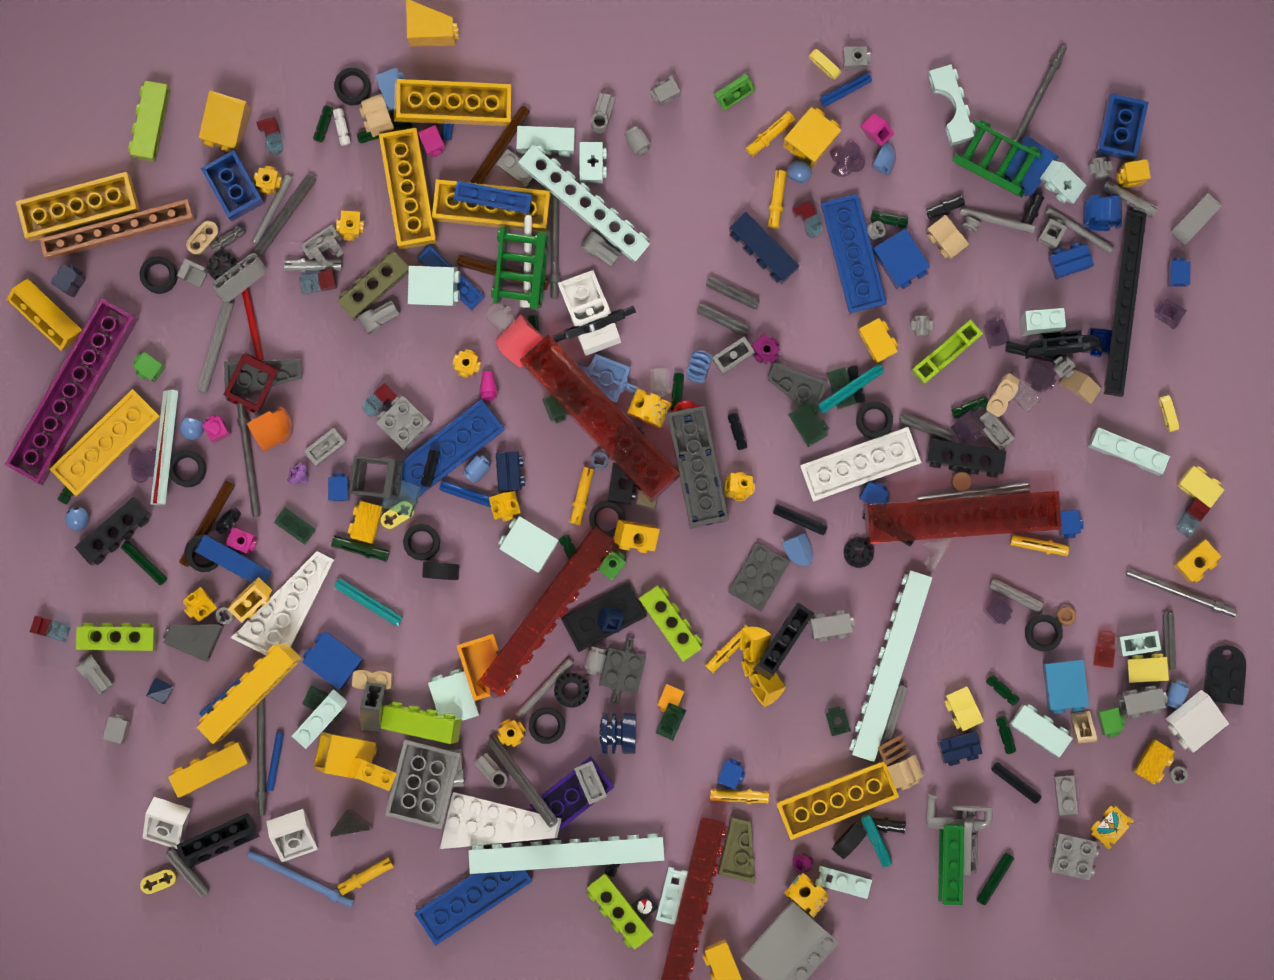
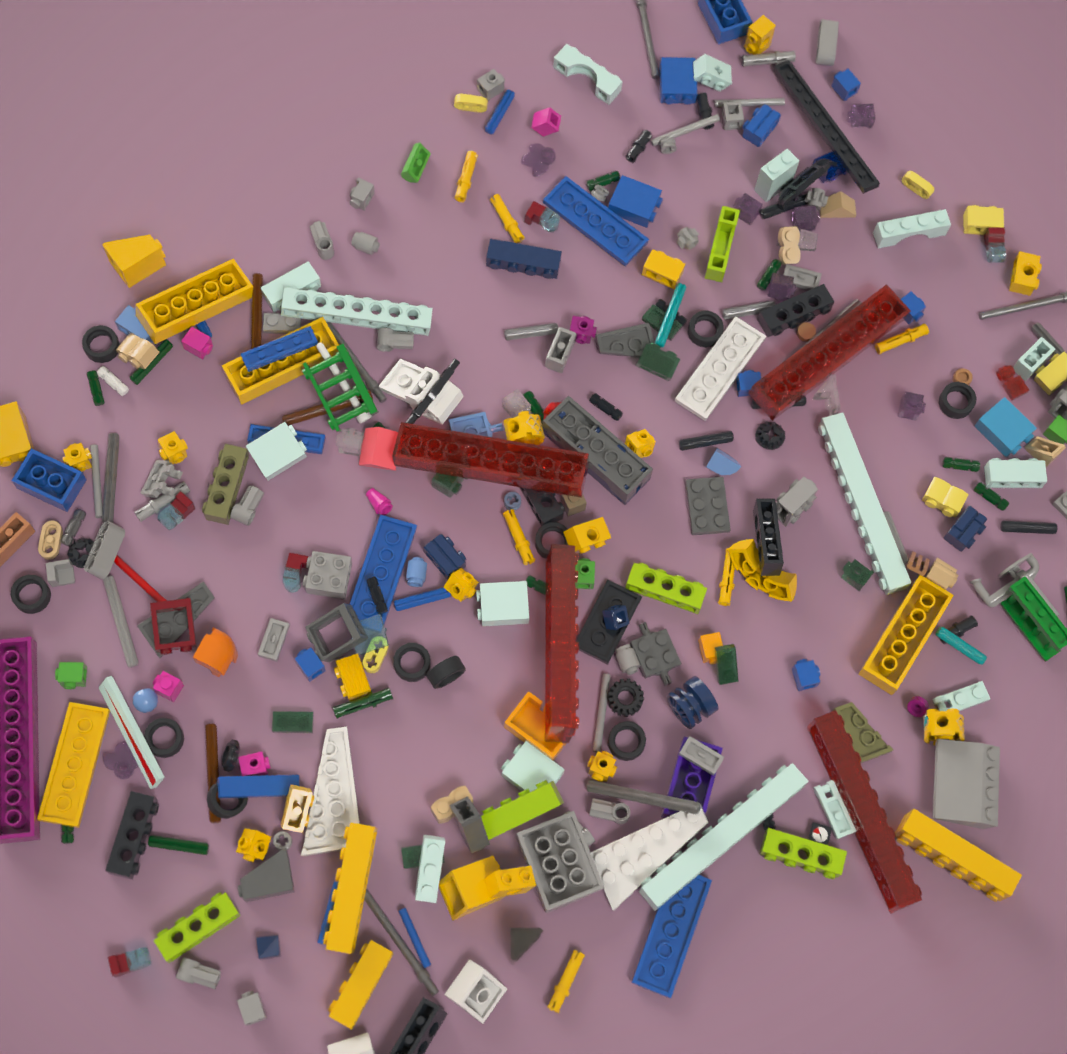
camera: 45 degrees left, 15 degrees down
(76, 518) = (91, 847): medium blue piece -> none
(242, 423) = (188, 667): flat silver bar -> none
(273, 137) = (57, 421): leg -> none
(298, 474) = (266, 677): medium lavender piece -> none
(332, 660) = (404, 812): blue brick -> none
(334, 895) = (550, 1019): medium blue bar -> none
(368, 602) = (401, 743): teal axle -> none
(407, 188) = (202, 390): yellow brick -> none
(466, 371) = (348, 494): yellow brick -> none
(591, 151) = (339, 279): light aqua brick -> none
(699, 366) = (539, 374): medium blue gear -> none
(732, 292) = (523, 307): flat silver axle -> none
(740, 796) = (833, 683): yellow pin -> none
(799, 171) = (509, 188): medium blue piece -> none
(812, 137) = (500, 158): yellow slope -> none
(849, 840) = (941, 659): black tyre -> none
(885, 160) = (567, 142): medium blue brick -> none
(947, 238) = (657, 165): tan brick -> none
(998, 177) = (663, 98): green fence -> none
(1016, 595) = (914, 387): light grey axle -> none
(1100, 168) = (731, 49): light grey gear -> none
(1102, 213) = (758, 76): blue brick -> none

